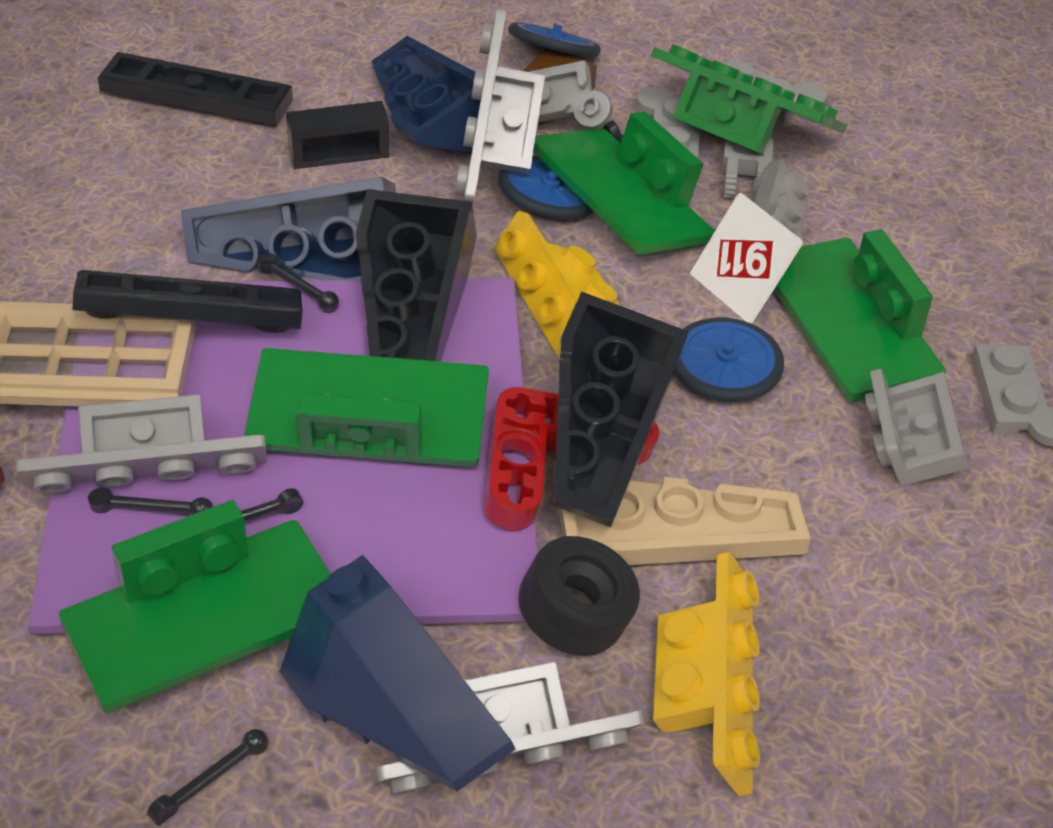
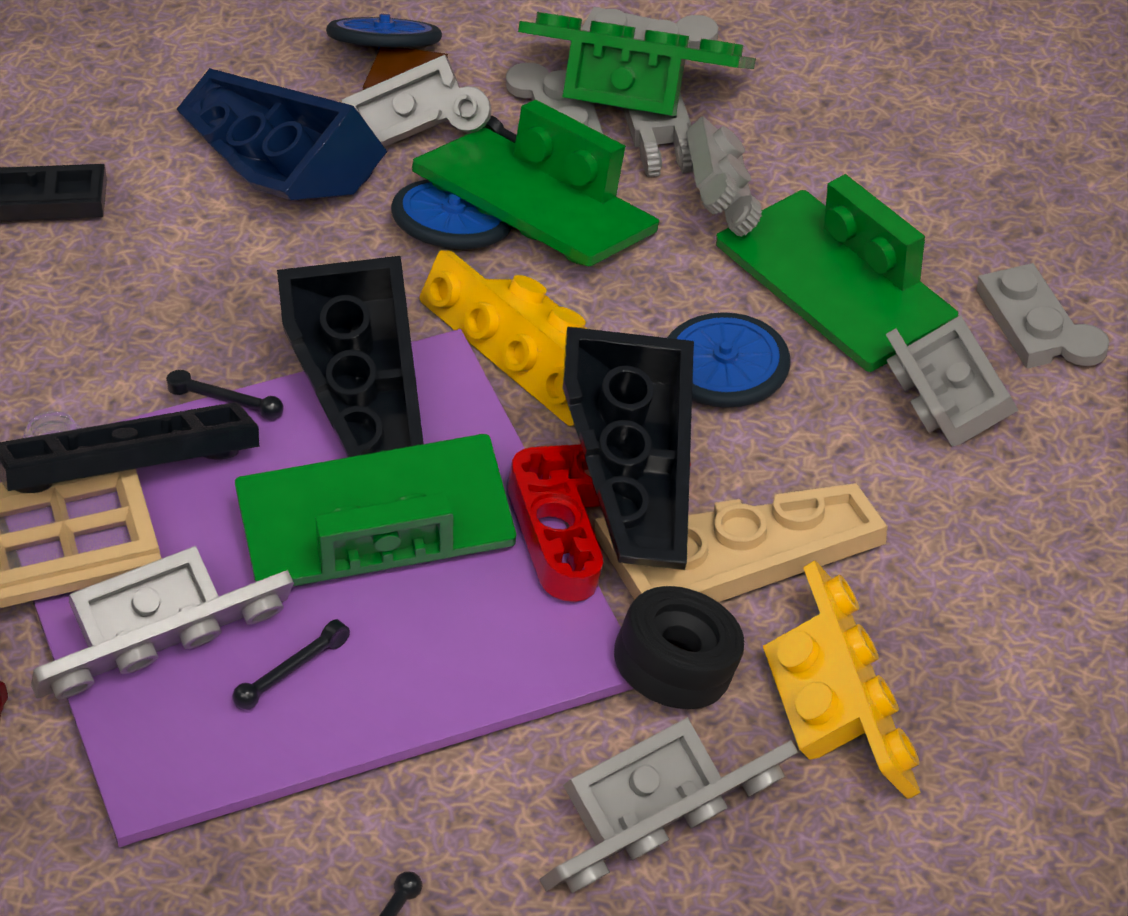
camera: 15 degrees left, 0 degrees up
(102, 501) = (131, 688): black hinge -> none
(191, 603) = (294, 763): green bracket -> none
(305, 229) = (216, 332): dark blue wedge -> none
(338, 134) = (187, 210): black piece -> none
(384, 678) = (517, 773): dark blue wedge -> none
(507, 115) = (385, 144): bracket -> none
(746, 258) = (707, 242): white sticker -> none

